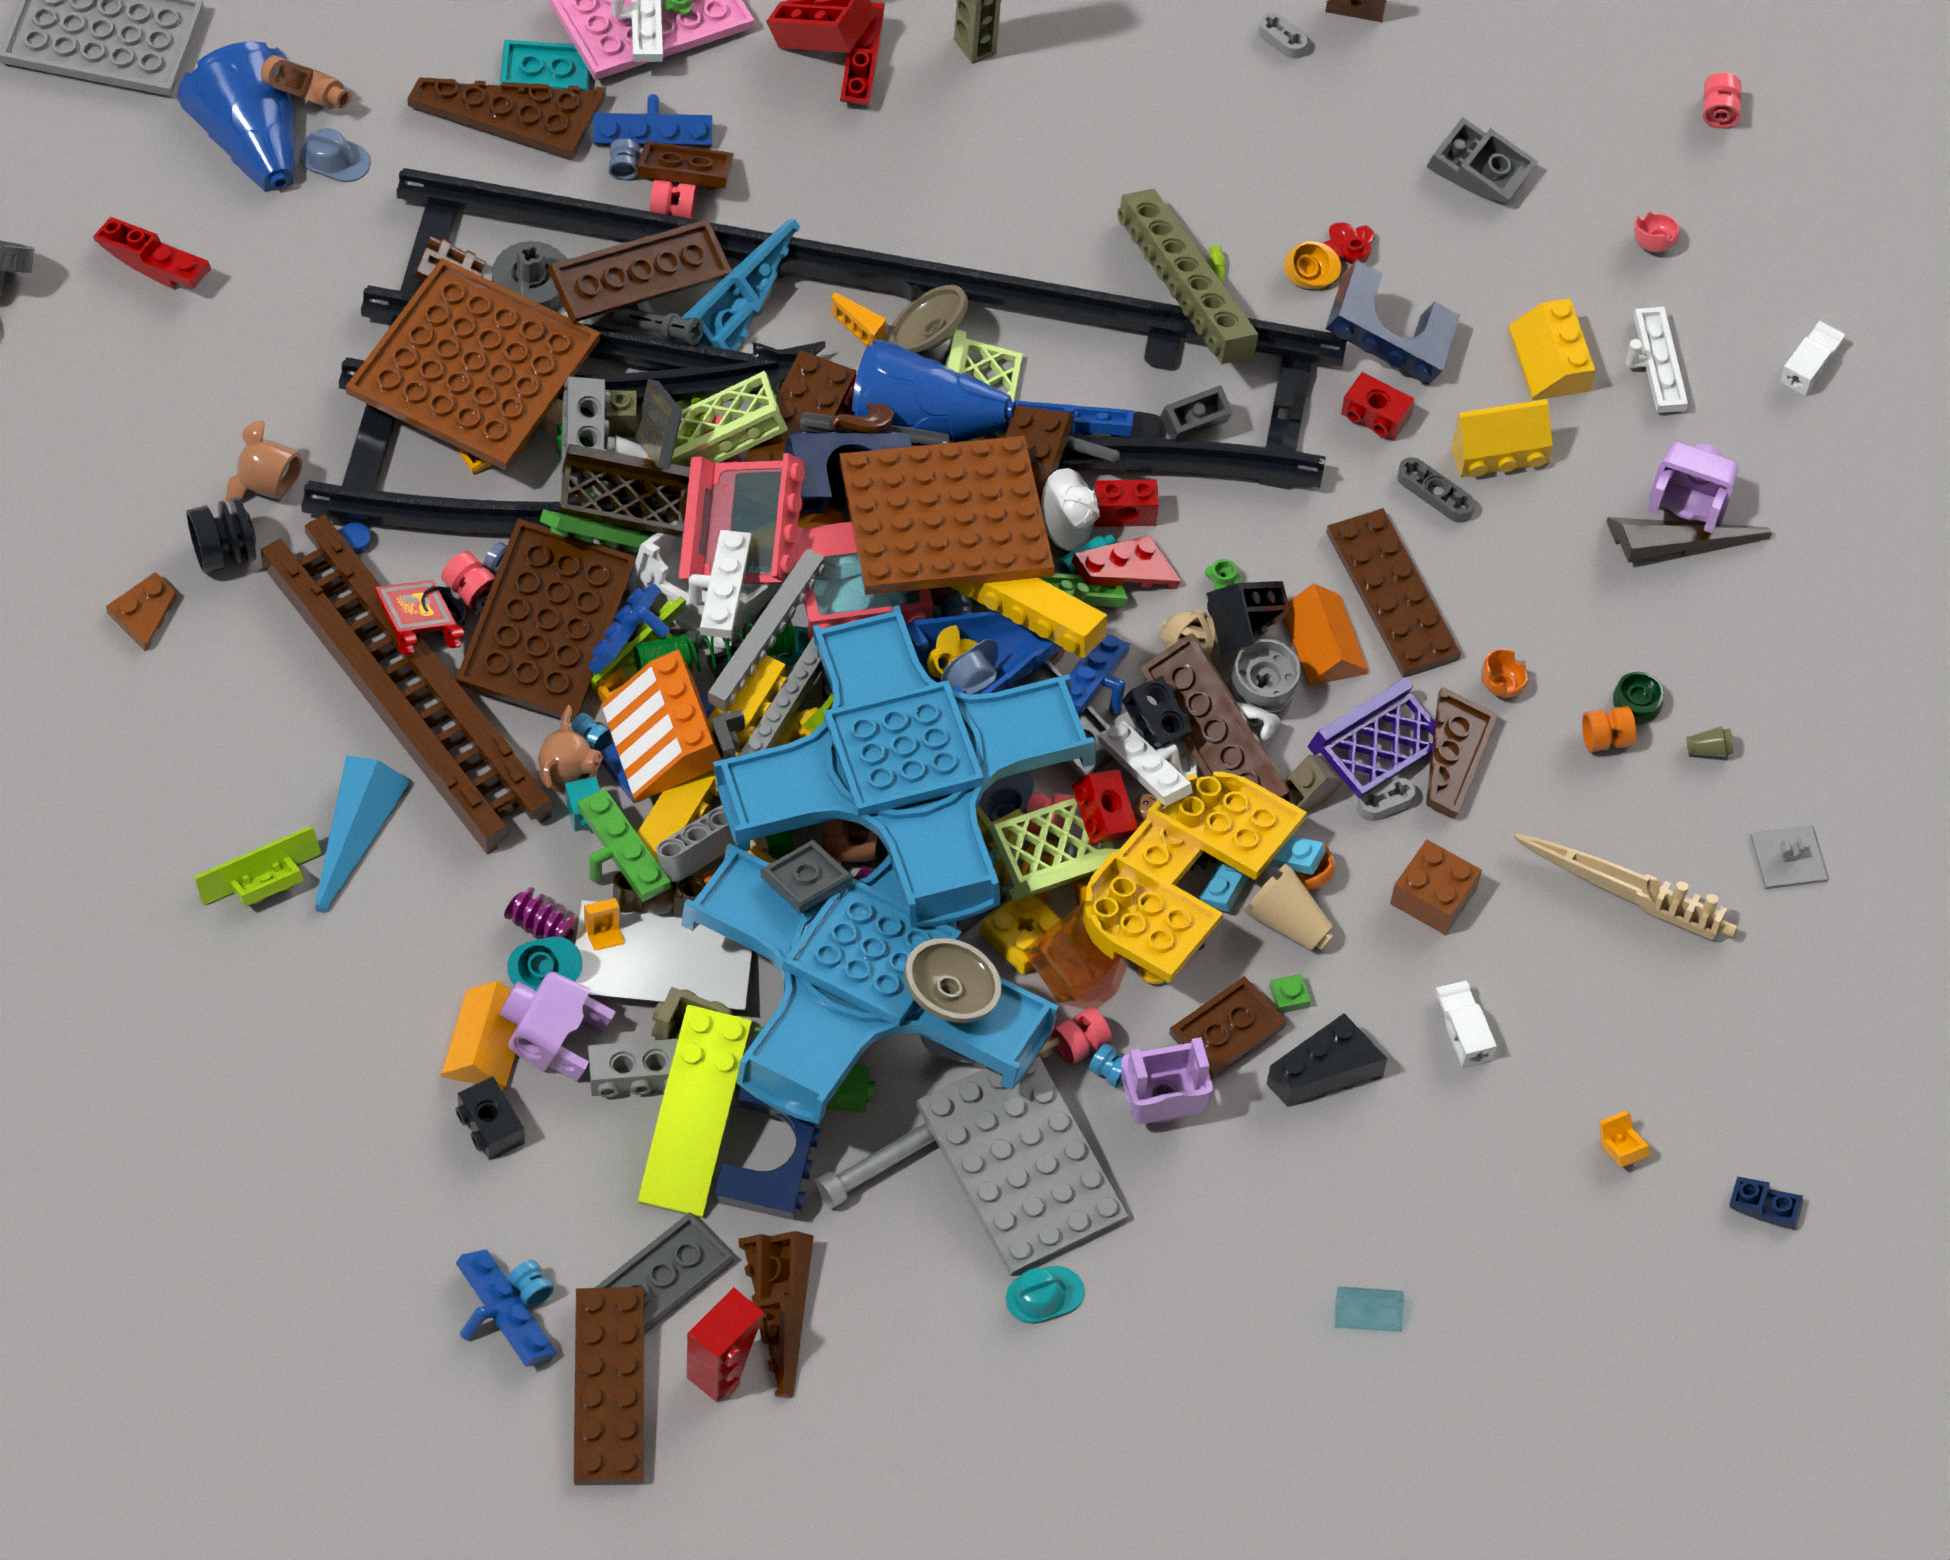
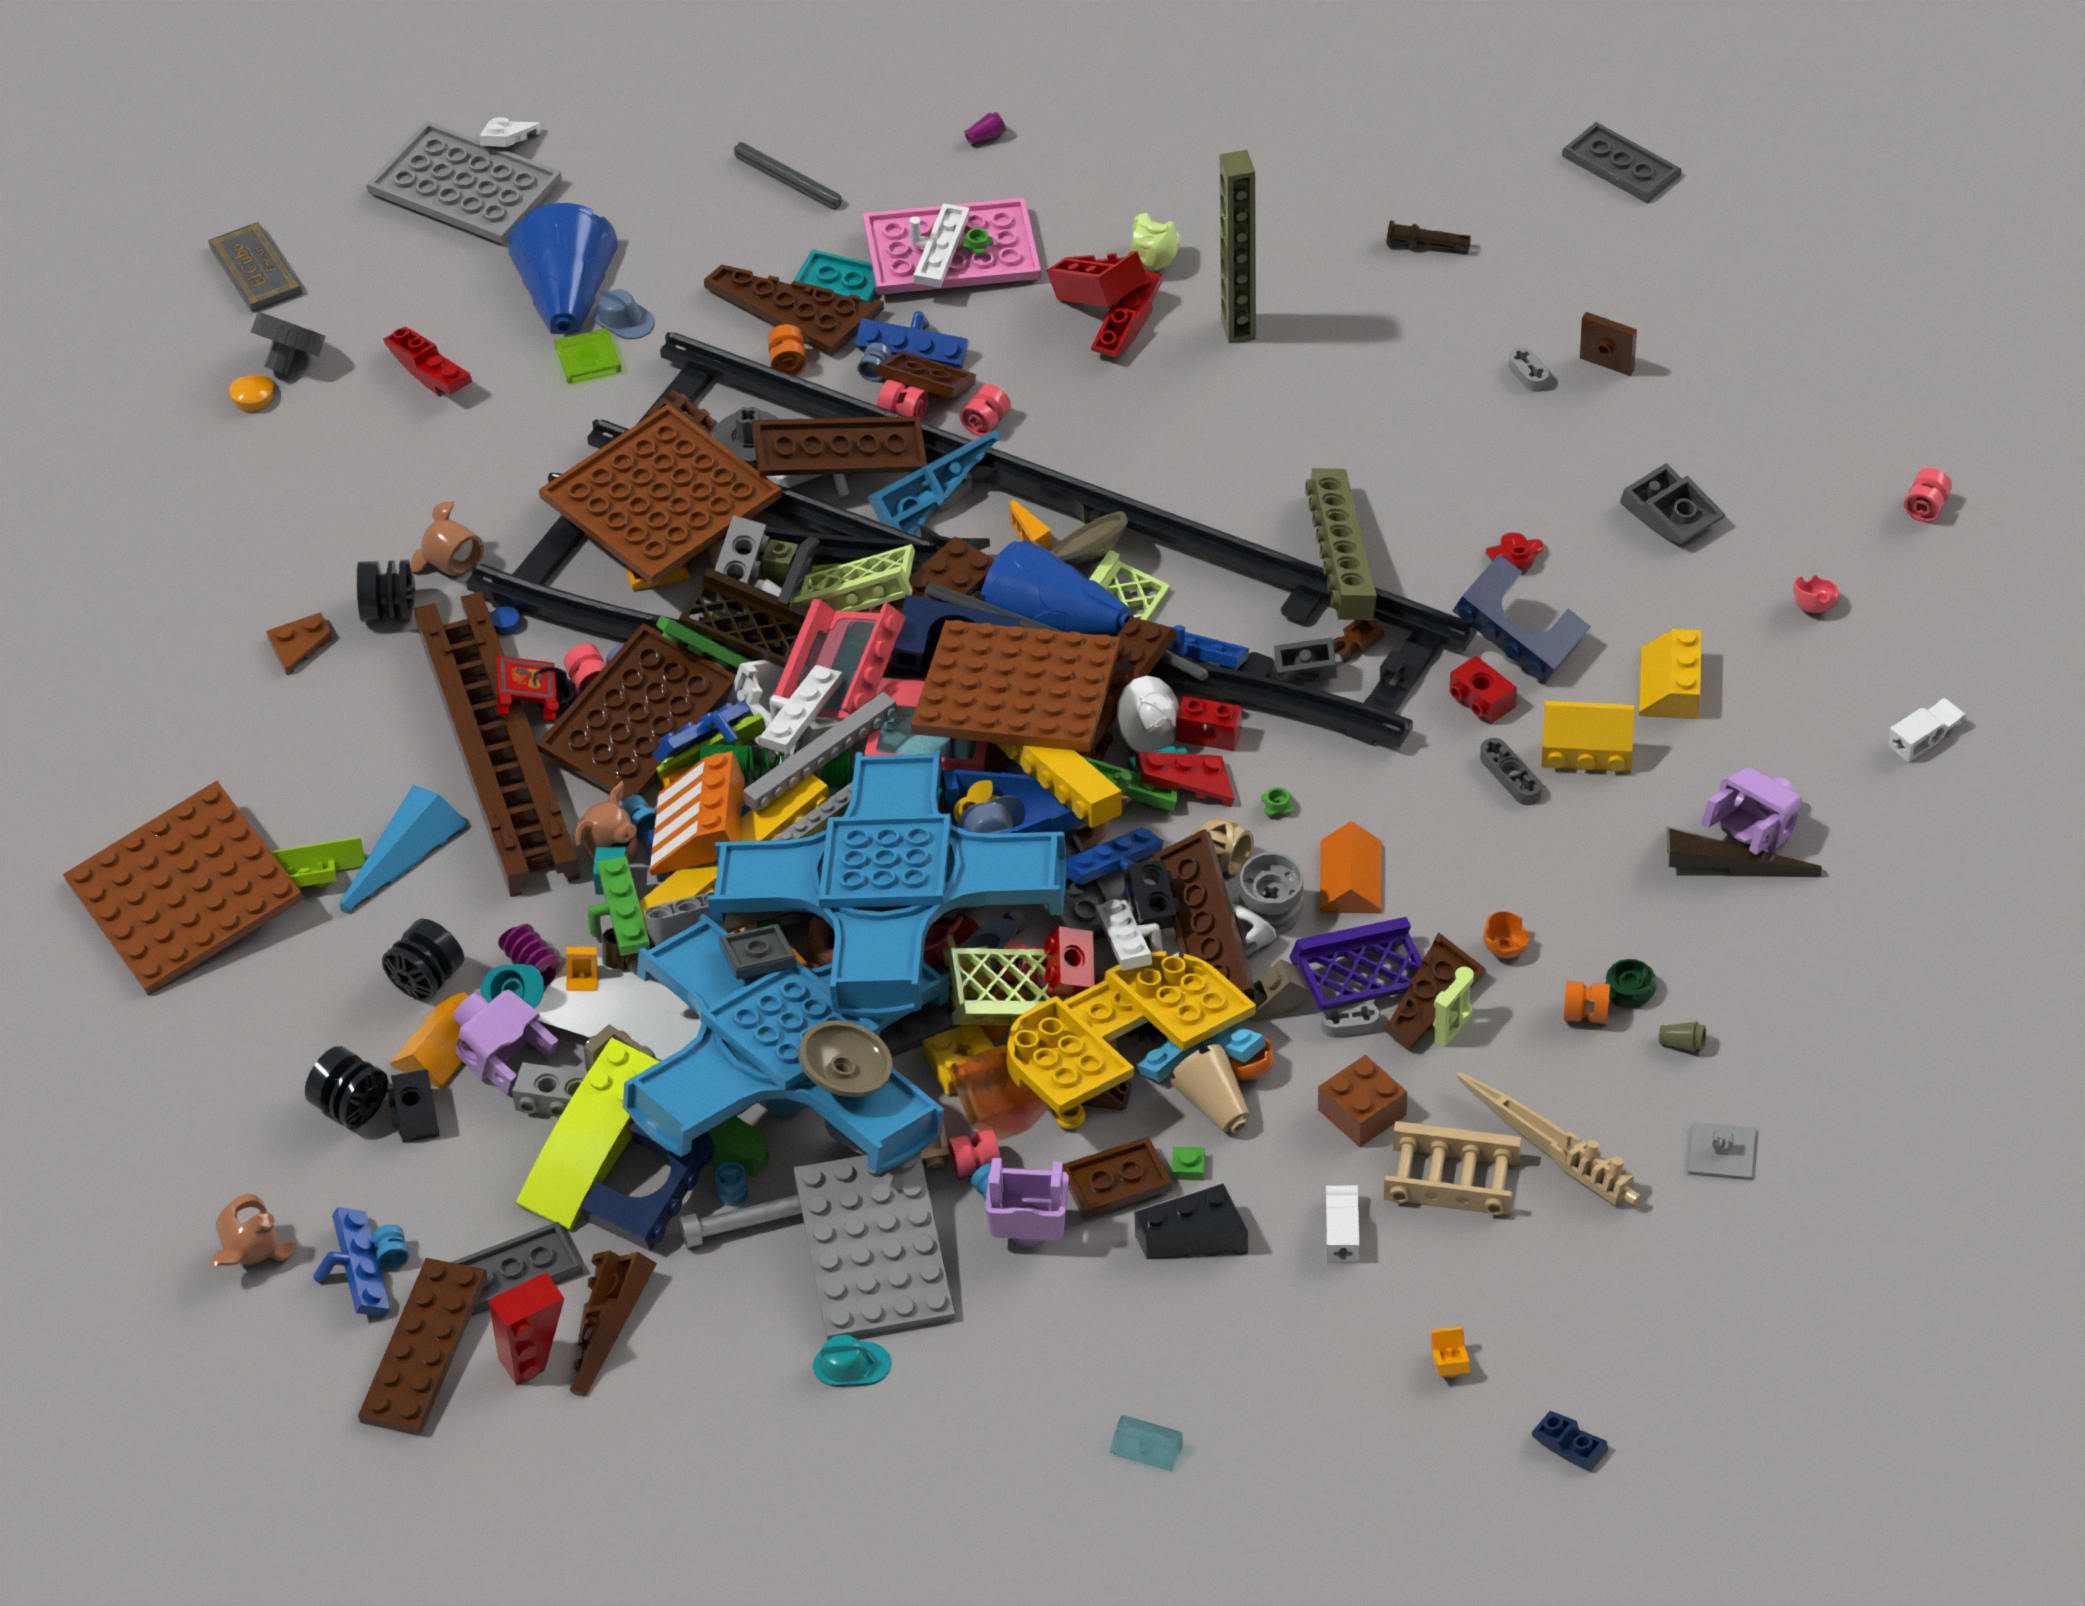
camera: 25 degrees right, 10 degrees down
(143, 926) = (183, 887): none -> dark orange plate
(305, 82) = (612, 246): nougat piece -> none
(316, 211) = (587, 356): none -> clear neon green plate
(383, 1312) = (251, 1240): none -> nougat piece
(424, 1119) = (346, 1087): none -> black wheel
(437, 953) = (423, 959): none -> black wheel
(528, 164) = (787, 349): none -> orange wheel
(669, 326) = (852, 499): dark grey pin -> none
(725, 729) = (750, 824): dark grey bracket -> none
(761, 193) = (985, 410): none -> coral wheel
(846, 1121) = (731, 1183): none -> dark azure wheel
(878, 420) = (996, 602): reddish brown piece -> none
(1217, 262) = (1384, 546): lime piece -> none
(1233, 374) = (1358, 635): none -> reddish brown plate
(1246, 611) = (1274, 825): black wedge -> none
(1312, 265) = (1468, 559): light orange hat -> none
(1393, 592) = (1432, 849): reddish brown plate -> none
(1488, 764) = (1453, 1007): none -> yellowish green plate
(1545, 911) = (1457, 1144): none -> tan fence
(1658, 358) = (1772, 702): white plate -> none

